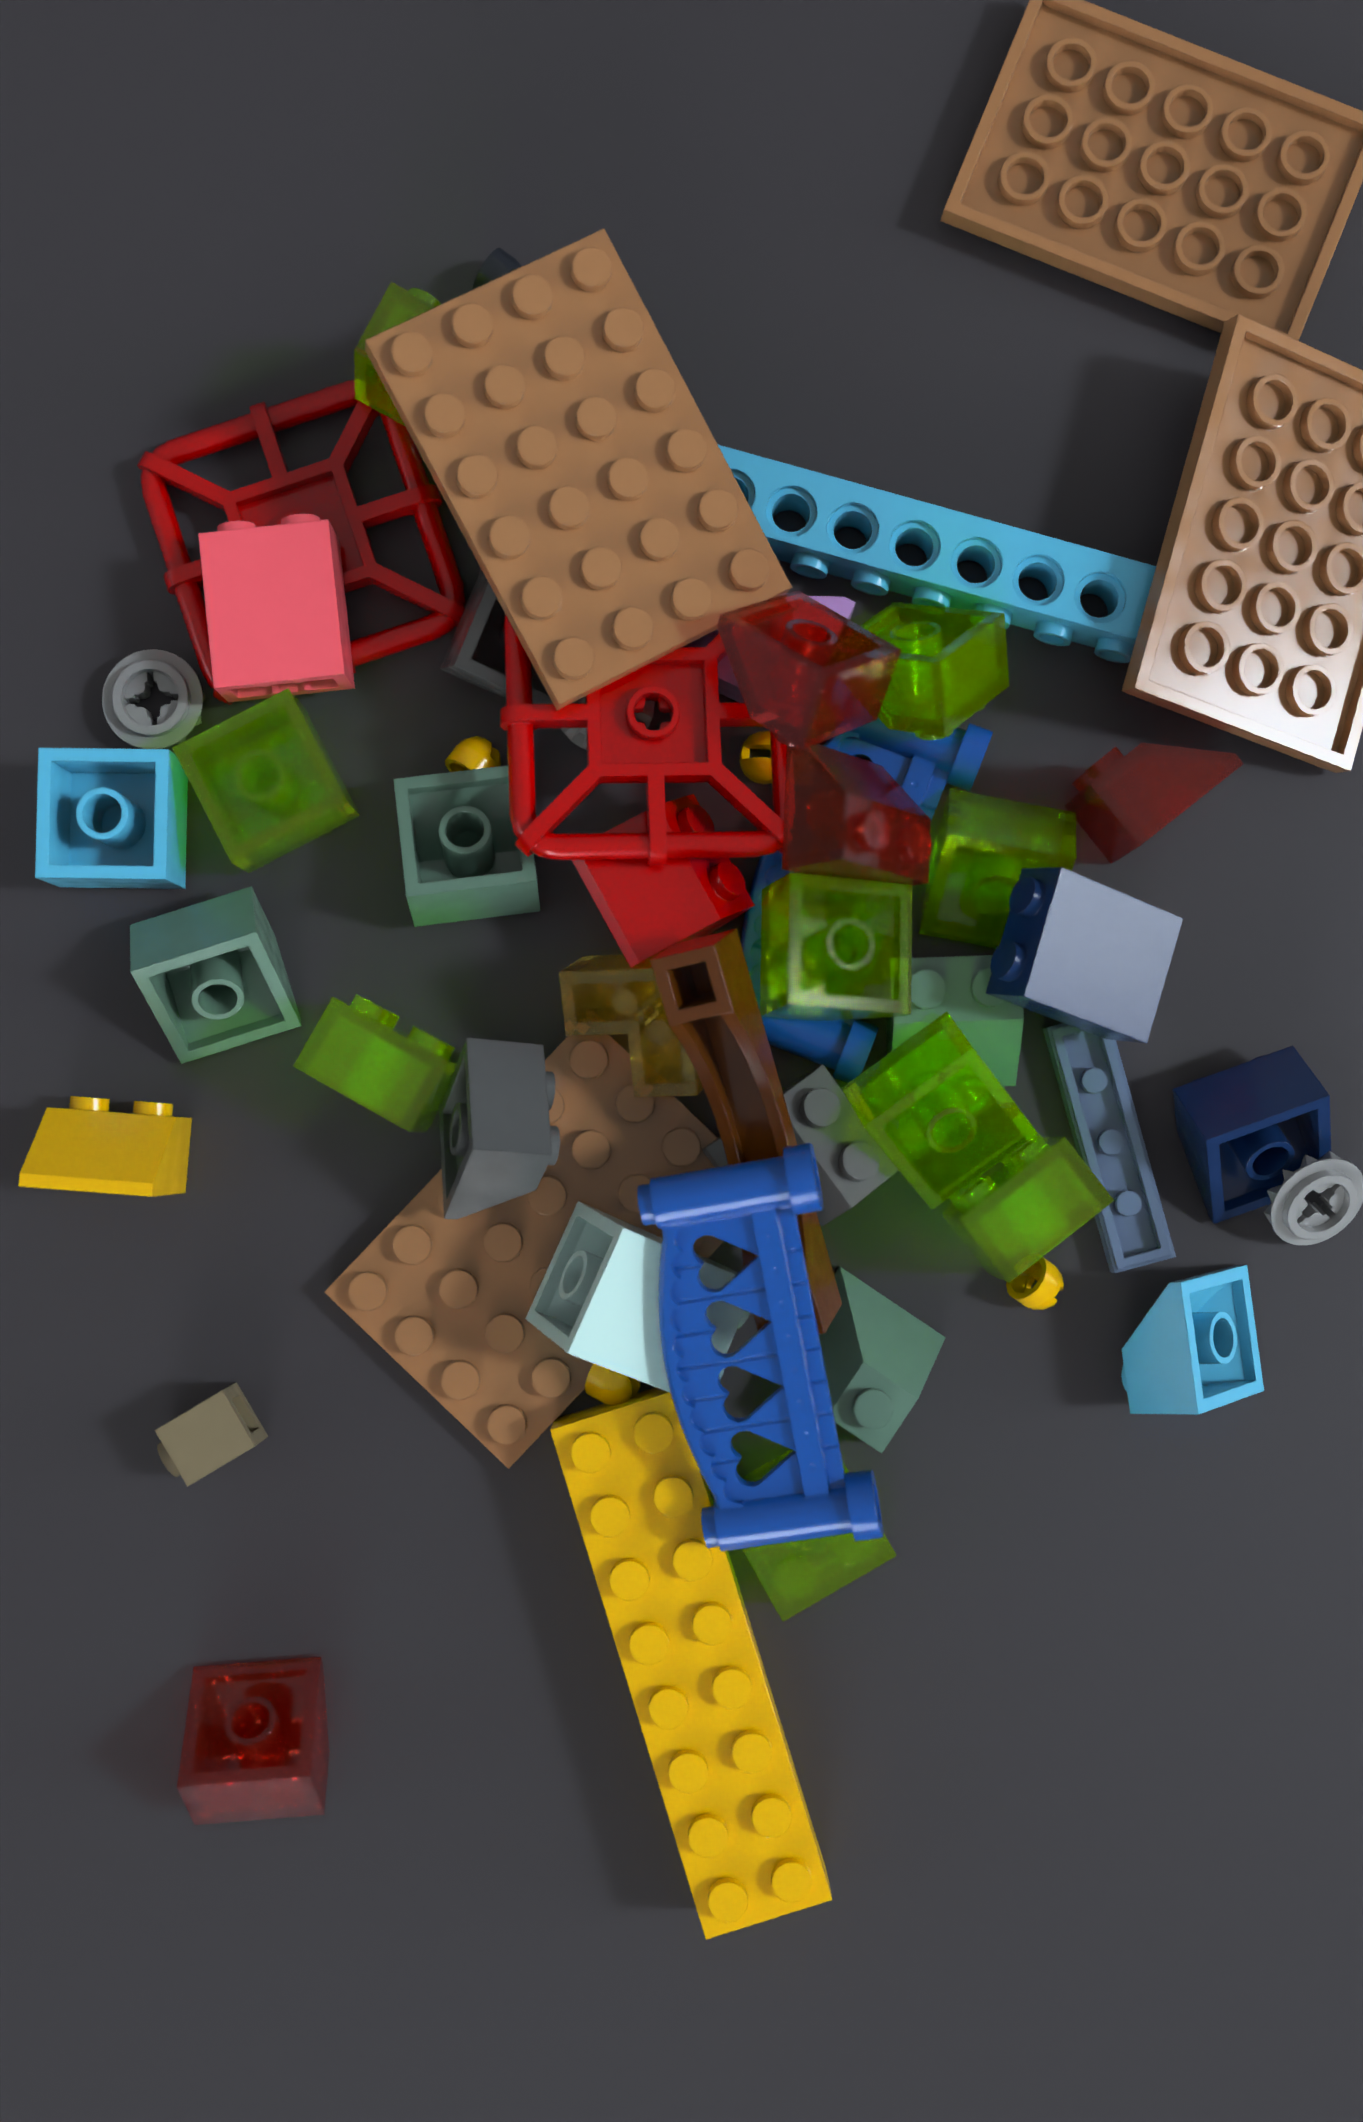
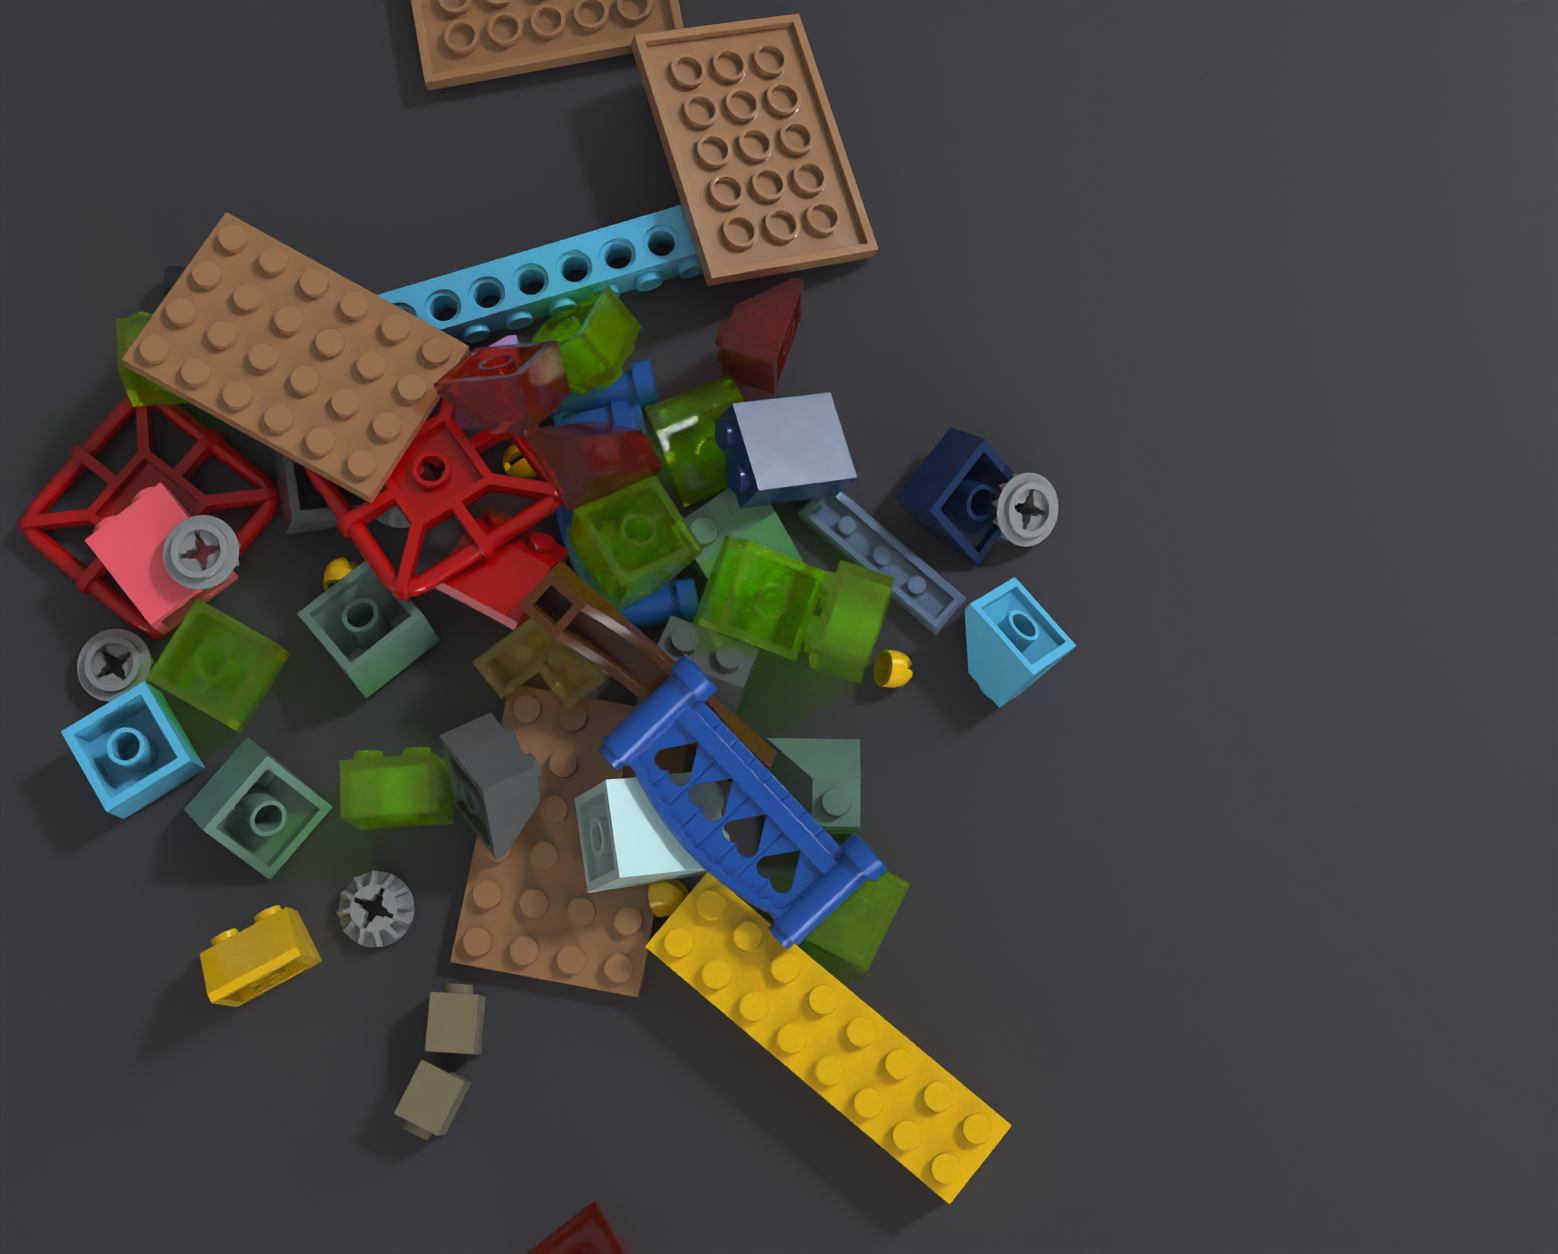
camera: 30 degrees left, 10 degrees down
(288, 1365) = (455, 1020): none -> dark tan brick
(308, 1181) = (396, 899): none -> light grey gear
(311, 613) = (185, 541): none -> light grey gear

